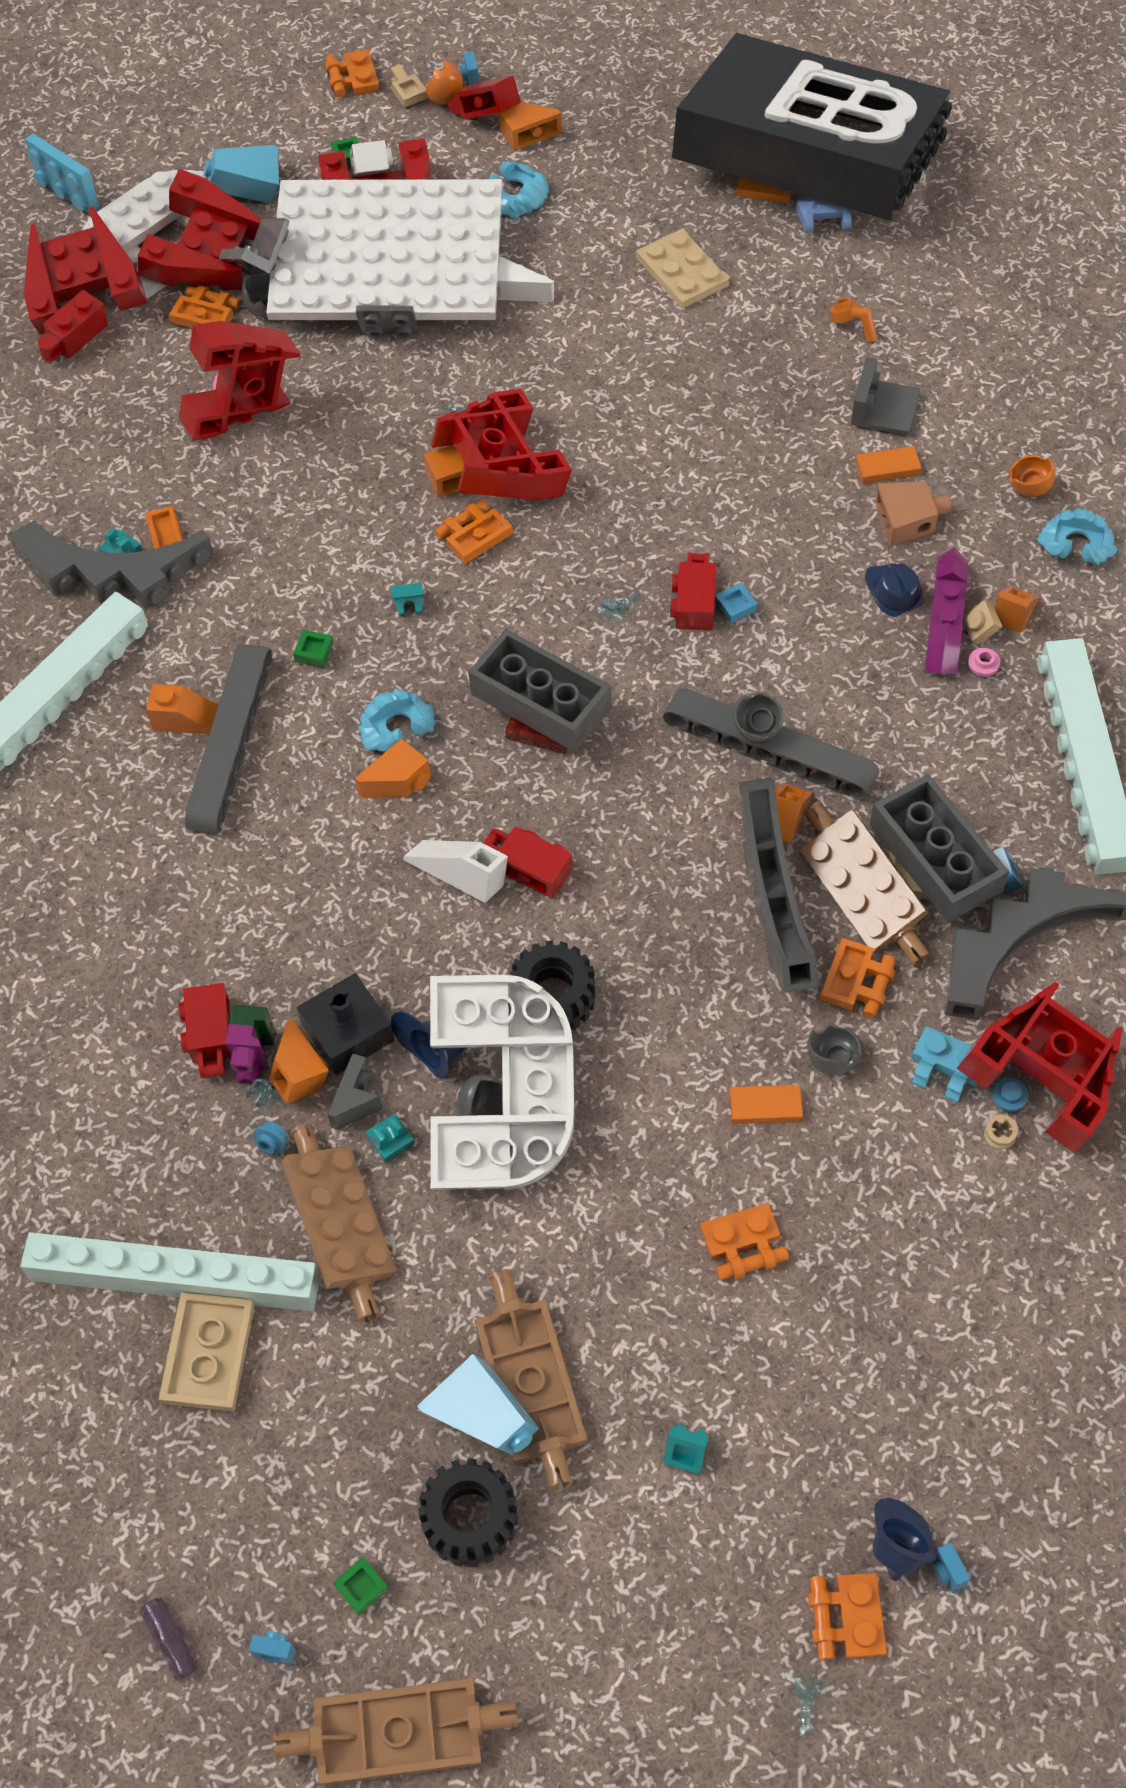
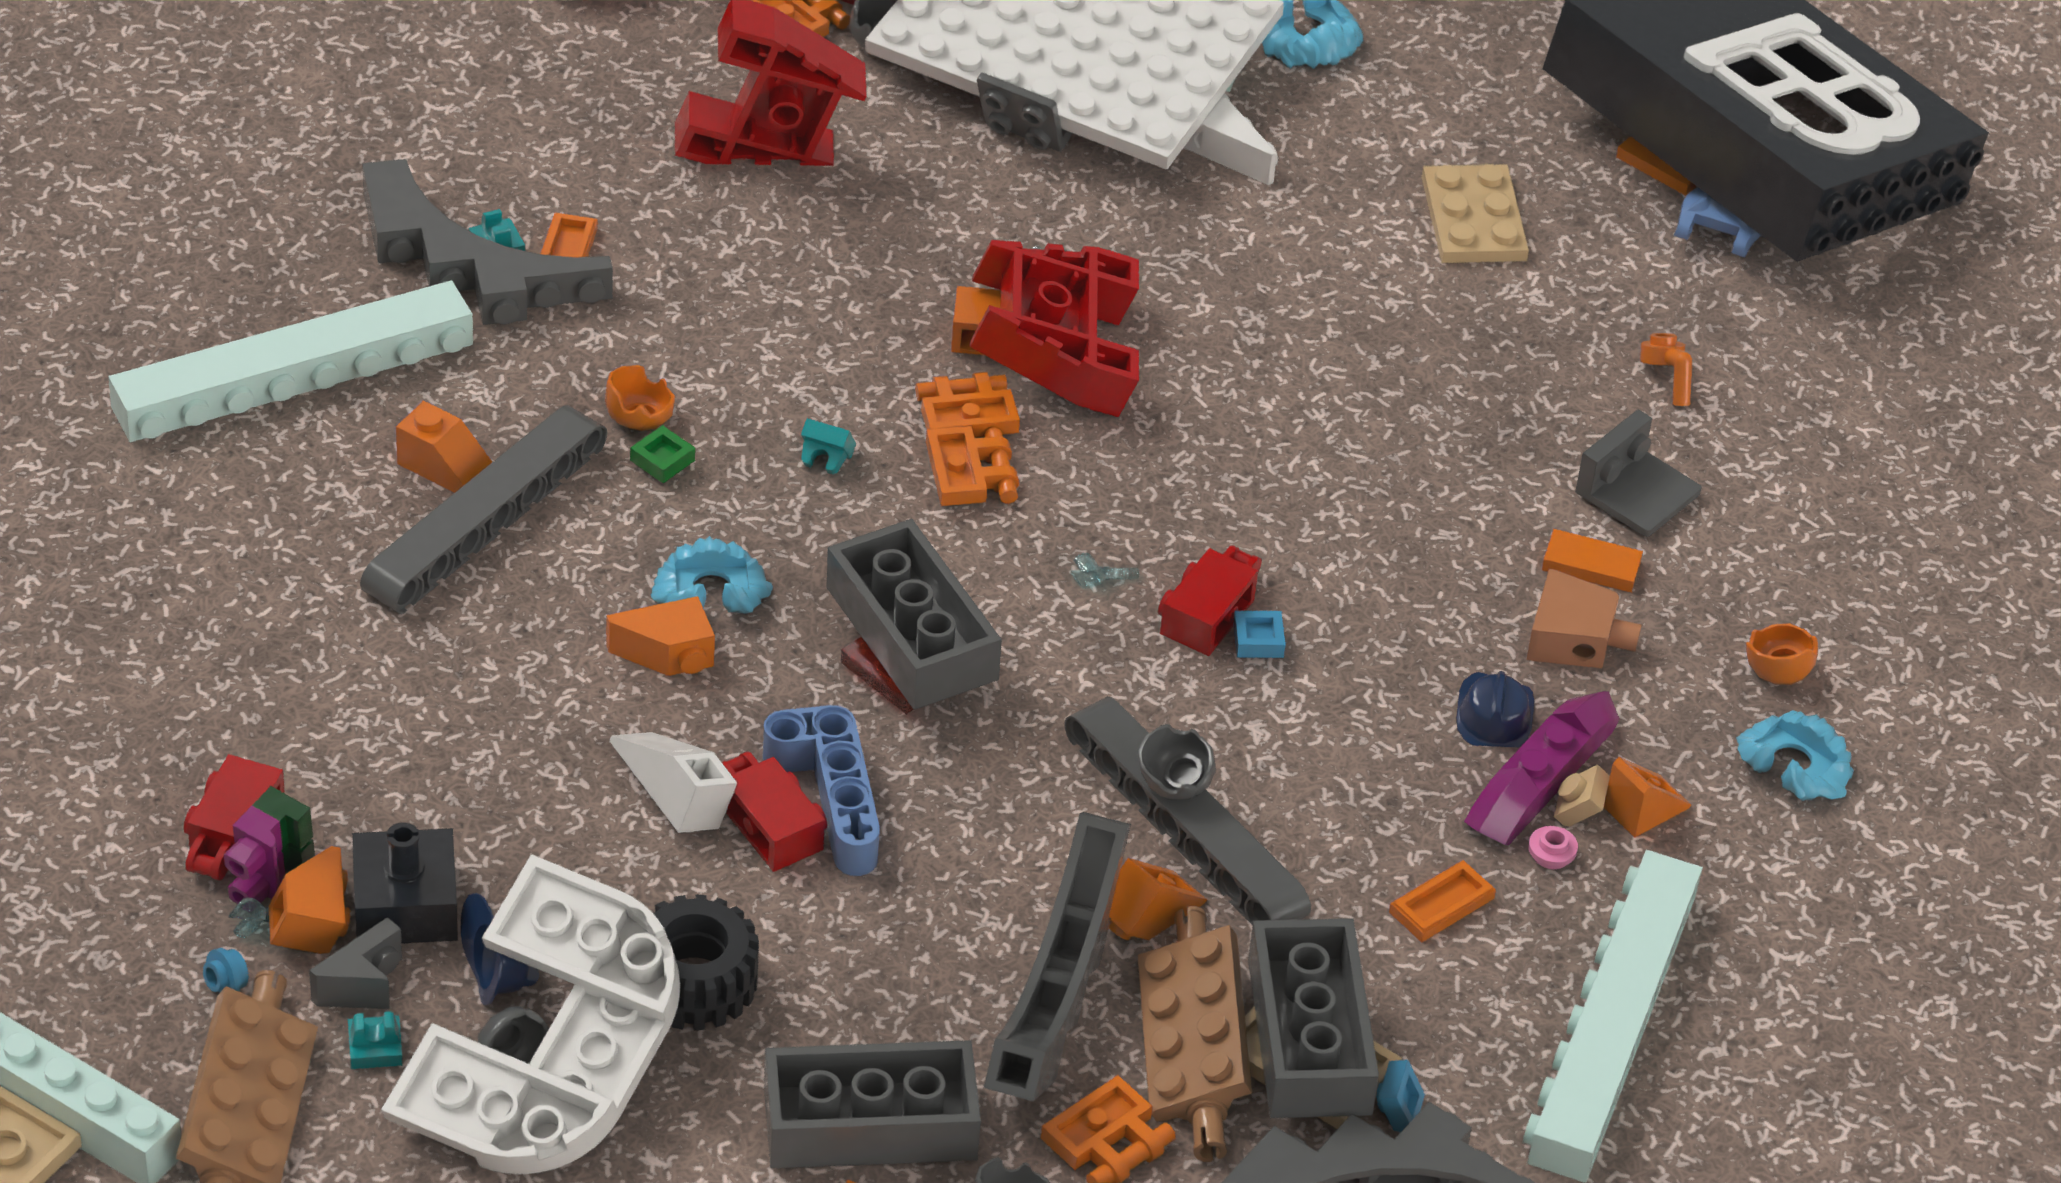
camera: 20 degrees right, 15 degrees down
(271, 614) = (636, 400): none -> orange hair
(494, 575) = (958, 469): none -> orange plate
(559, 828) = (830, 745): none -> medium blue beam
(716, 1032) = (871, 1104): none -> dark grey brick
(944, 727) = (1442, 901): none -> orange tile

